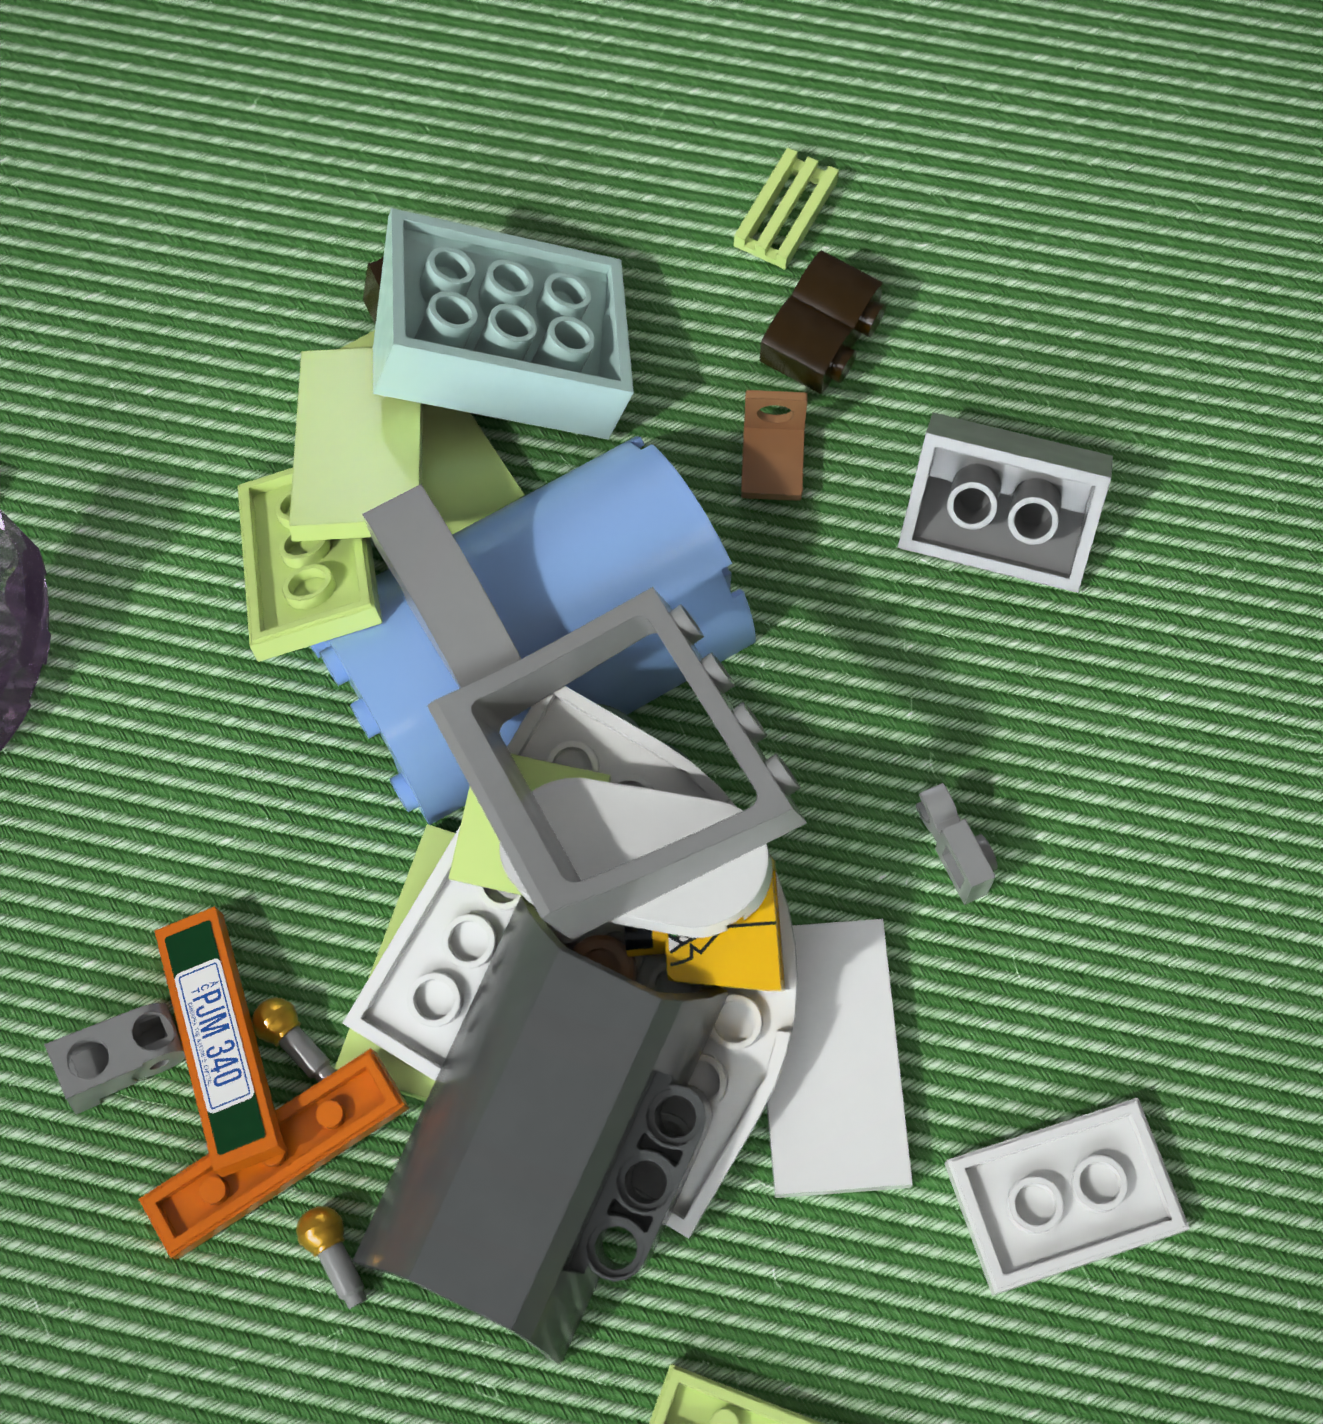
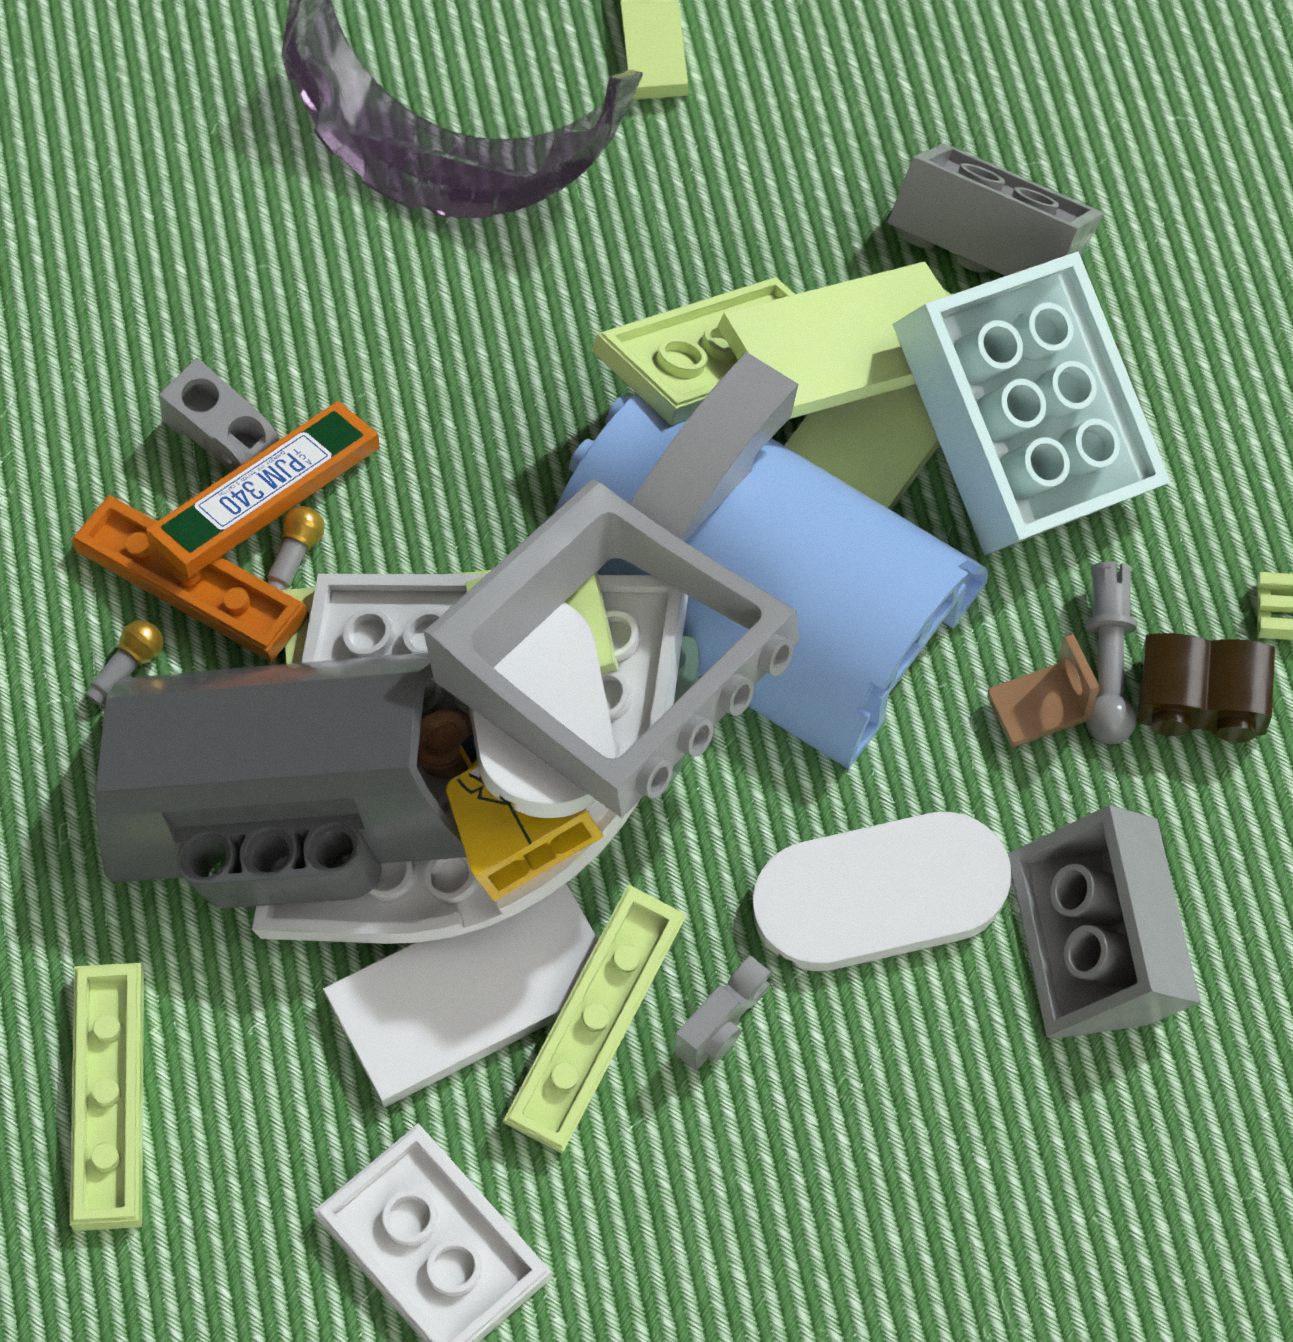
camera: 65 degrees right, 5 degrees down
(283, 280) = (987, 213): none -> light grey slope
(721, 366) = (1113, 715): none -> light grey pin
(889, 665) = (881, 891): none -> white tile
(914, 957) = (594, 1019): none -> yellowish green tile

